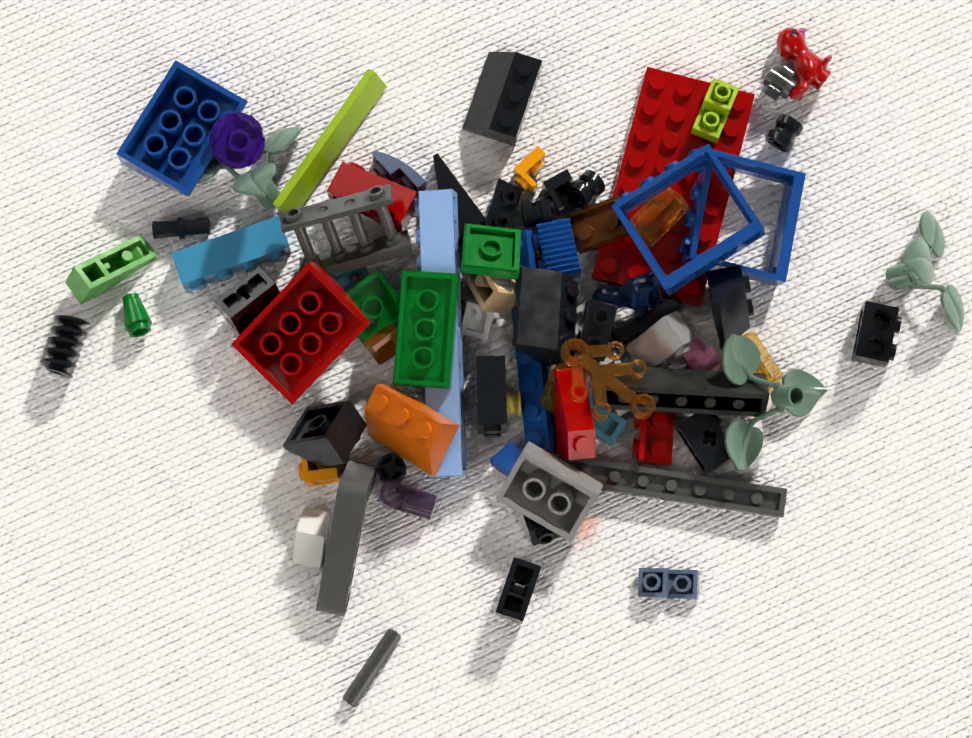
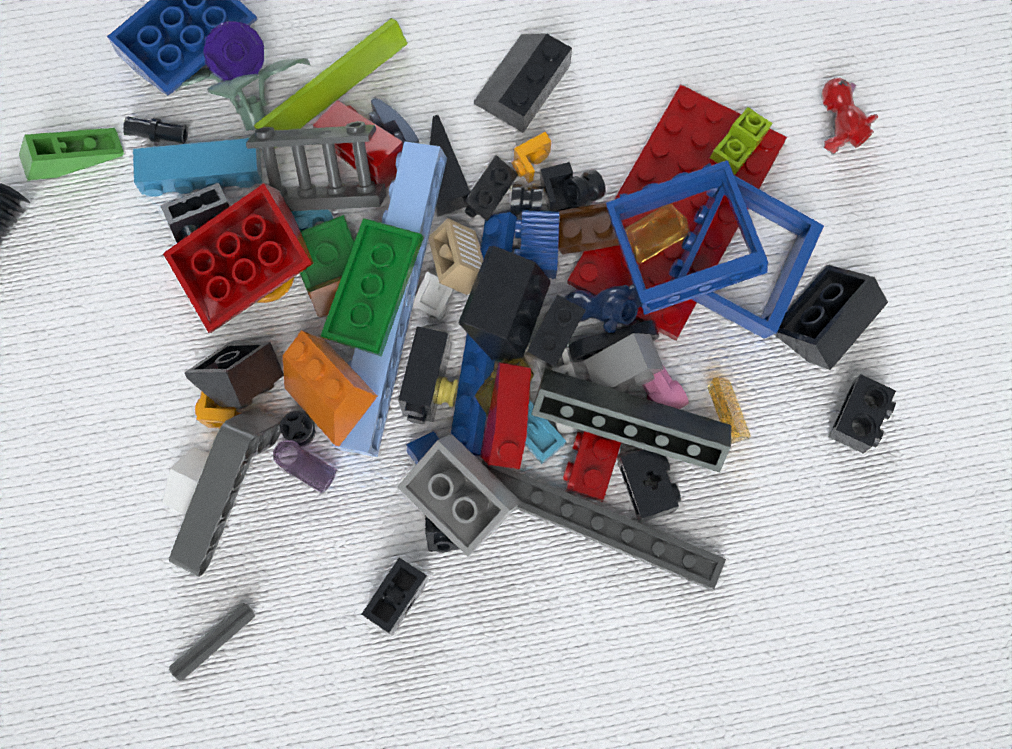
camera: 15 degrees right, 5 degrees down
(136, 318) = (80, 207): green cone -> none
(491, 251) = (464, 222): green tile -> none
(604, 375) = (551, 380): clear orange plant -> none
(668, 583) = (567, 632): sand blue slope -> none
(729, 301) = (709, 339): black slope -> none
(779, 83) = (816, 130): dark grey gear -> none
(783, 134) = (806, 185): black wheel -> none
(796, 394) = (761, 454): sand green plant -> none
(829, 252) = (831, 315): none -> black slope
(919, 267) = (939, 334): sand green plant -> none

